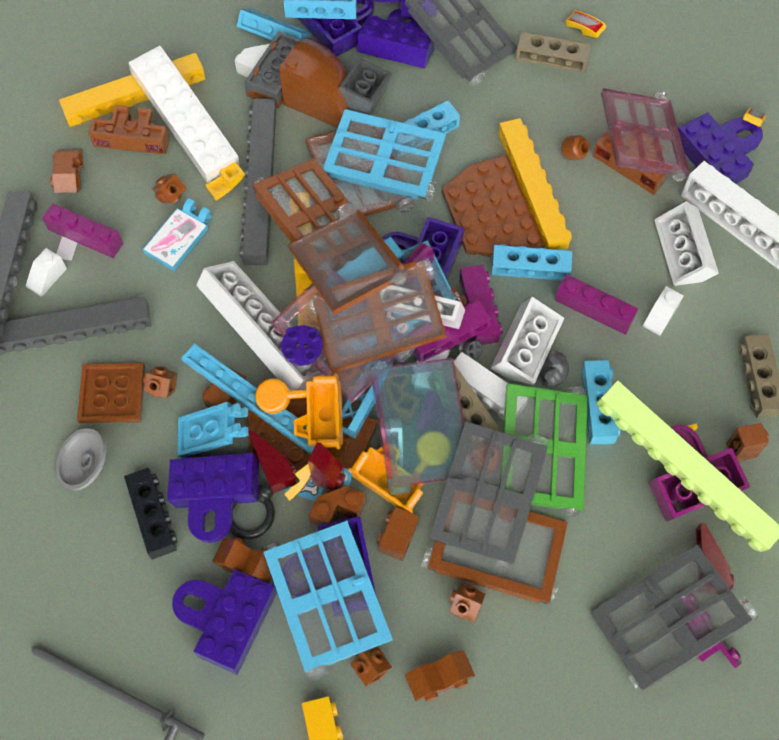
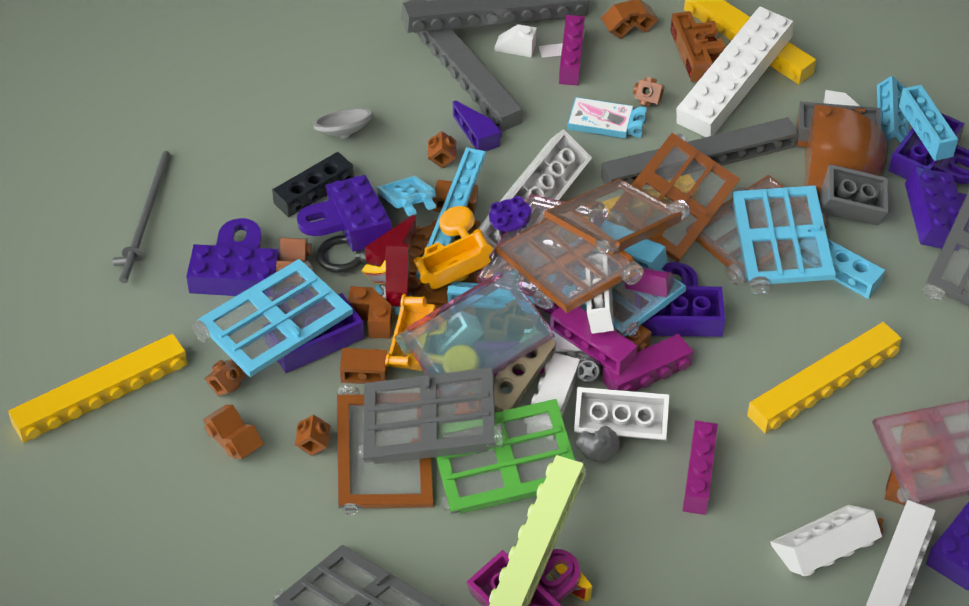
camera: 70 degrees right, 15 degrees down
(111, 393) = (416, 122): dark orange plate -> none
(147, 342) = (477, 127): none -> dark purple slope
(226, 182) = (690, 129): yellow slope -> none
(491, 208) = (771, 349): dark orange plate -> none
(538, 269) = (724, 399): medium azure brick -> none
(575, 147) = (890, 395): dark orange head -> none
(598, 432) = (610, 481): medium azure brick -> none
(663, 310) = (725, 533): white slope -> none

